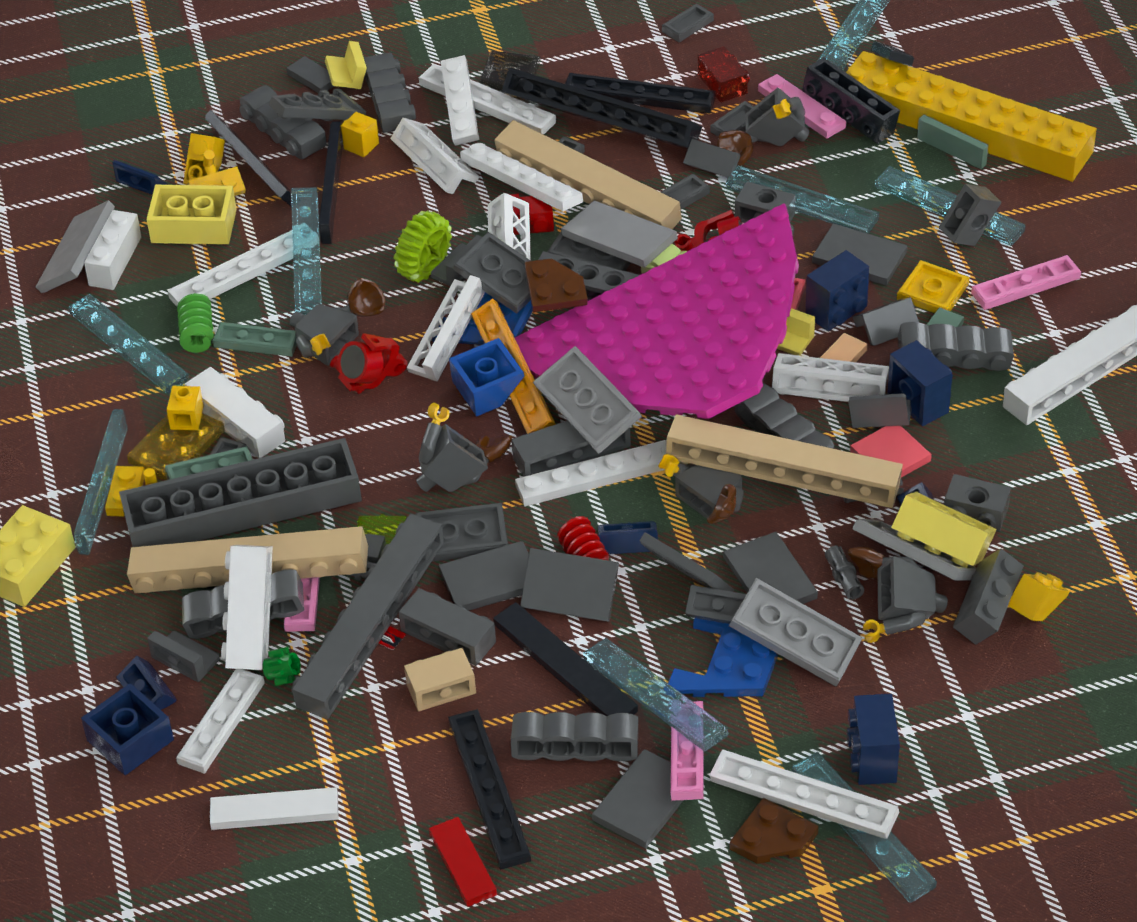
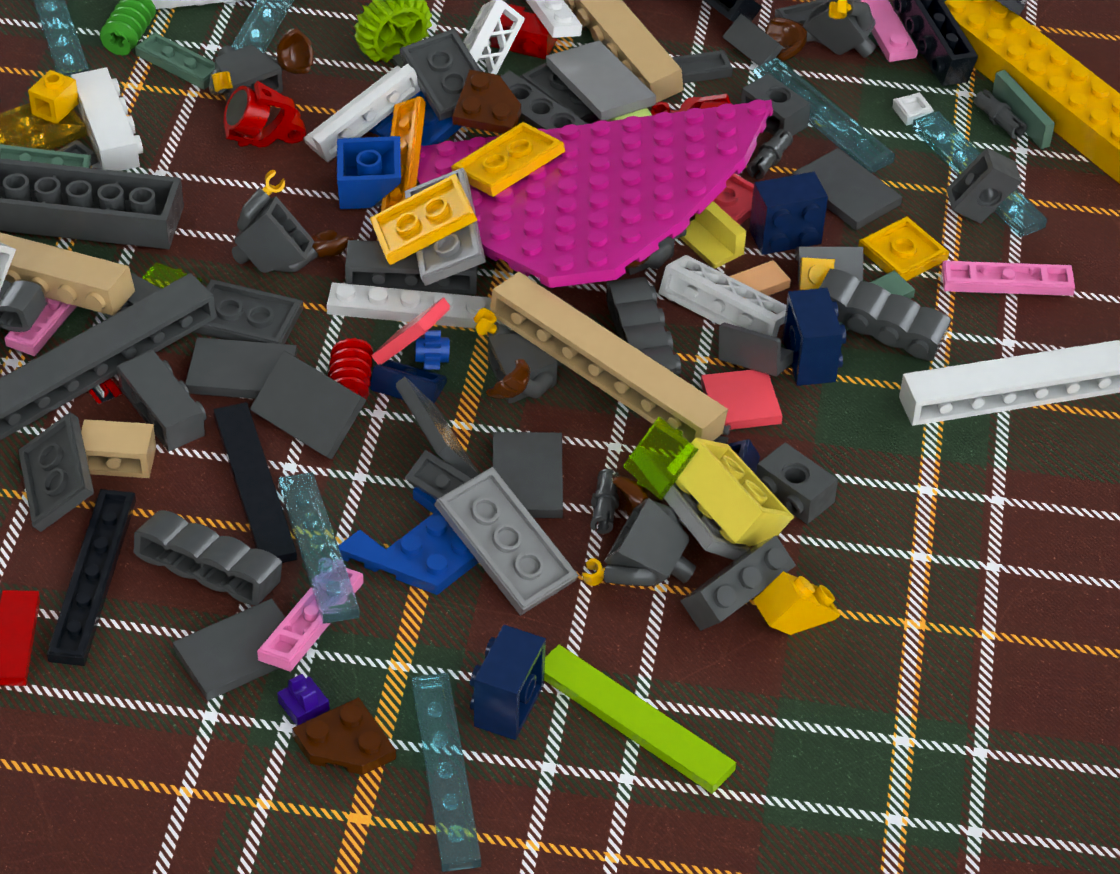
camera: 20 degrees right, 0 degrees up
(408, 716) = (55, 472): none -> dark grey tile
(568, 399) = (423, 219): none -> yellow tile
(601, 324) = (509, 158): none -> yellow tile
(614, 495) = (411, 331): none -> coral tile
(634, 503) = (432, 350): none -> blue gear
(721, 818) = (303, 699): none -> dark purple tile
(804, 794) = (400, 711): white plate -> none
(866, 170) = (911, 107): none -> white tile
(881, 521) = (660, 457): none -> clear neon green piece
(884, 332) = (813, 272): none -> yellow plate
(936, 151) = (1000, 114): none -> dark grey pin
(981, 730) = (637, 719): none -> lime tile

